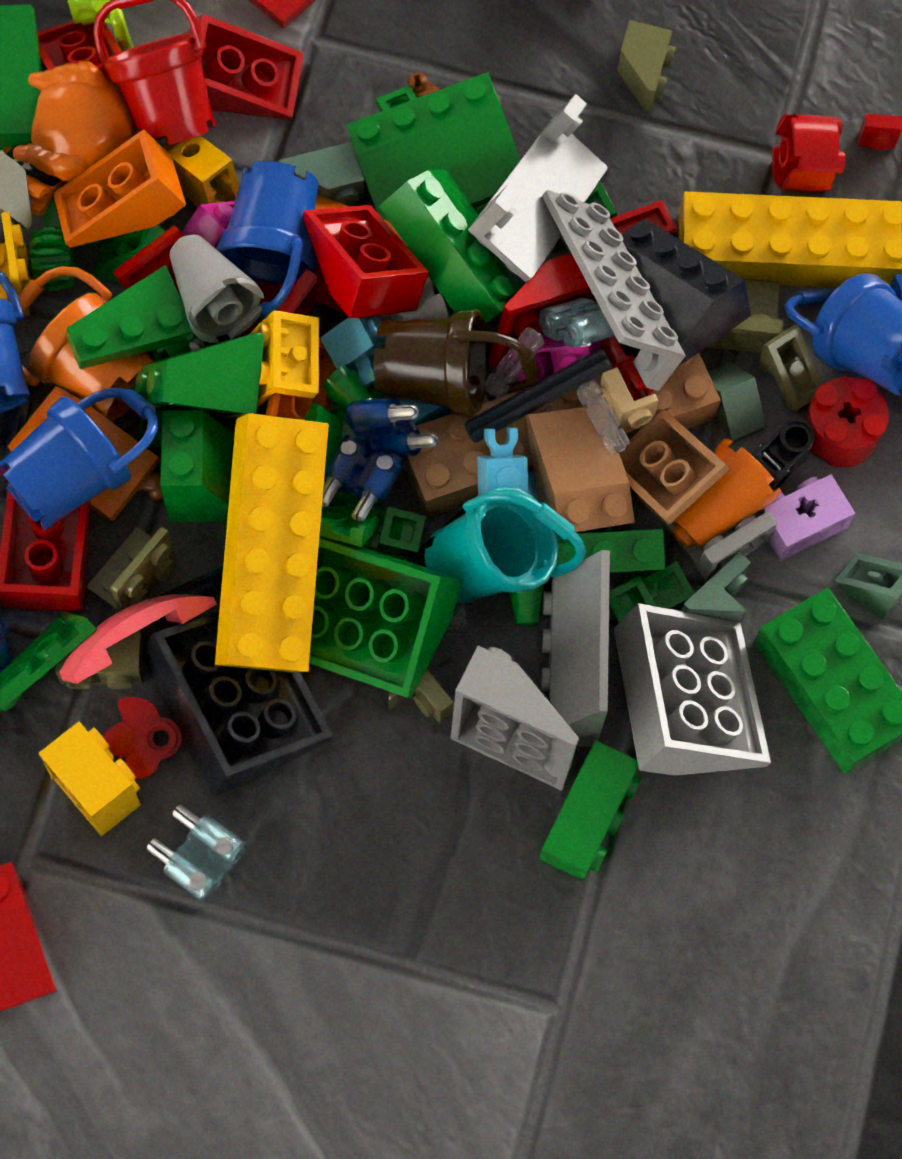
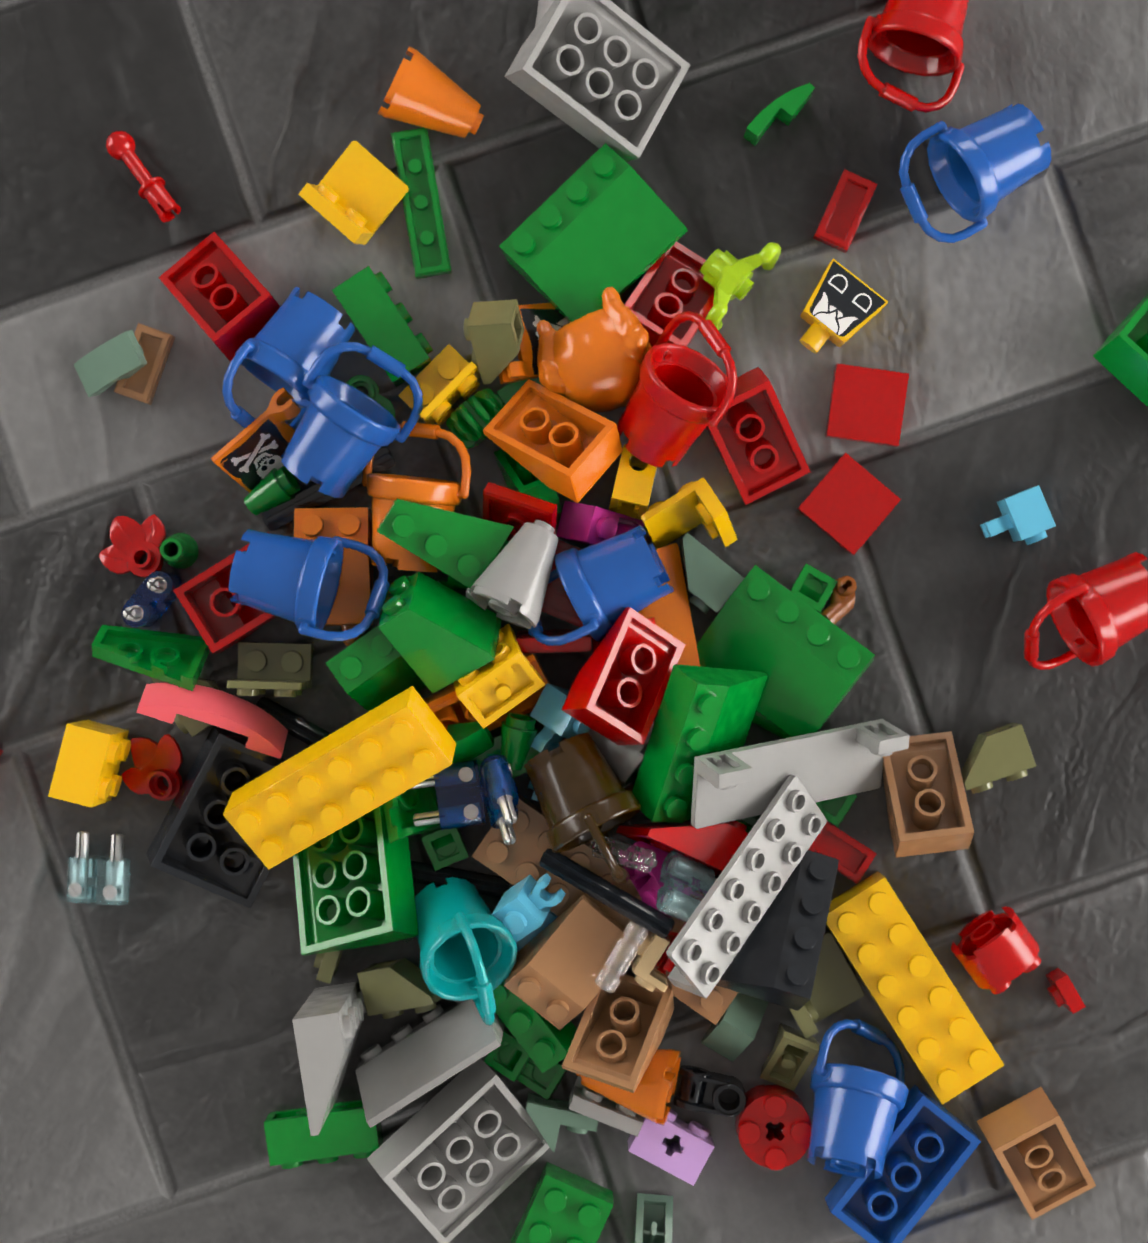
camera: 60 degrees right, 20 degrees up
(268, 132) = (684, 511): none -> yellow bracket
(352, 43) = (849, 504): none -> red tile
(508, 636) = (394, 987): none -> olive slope
(642, 131) = (926, 797): none -> medium nougat slope

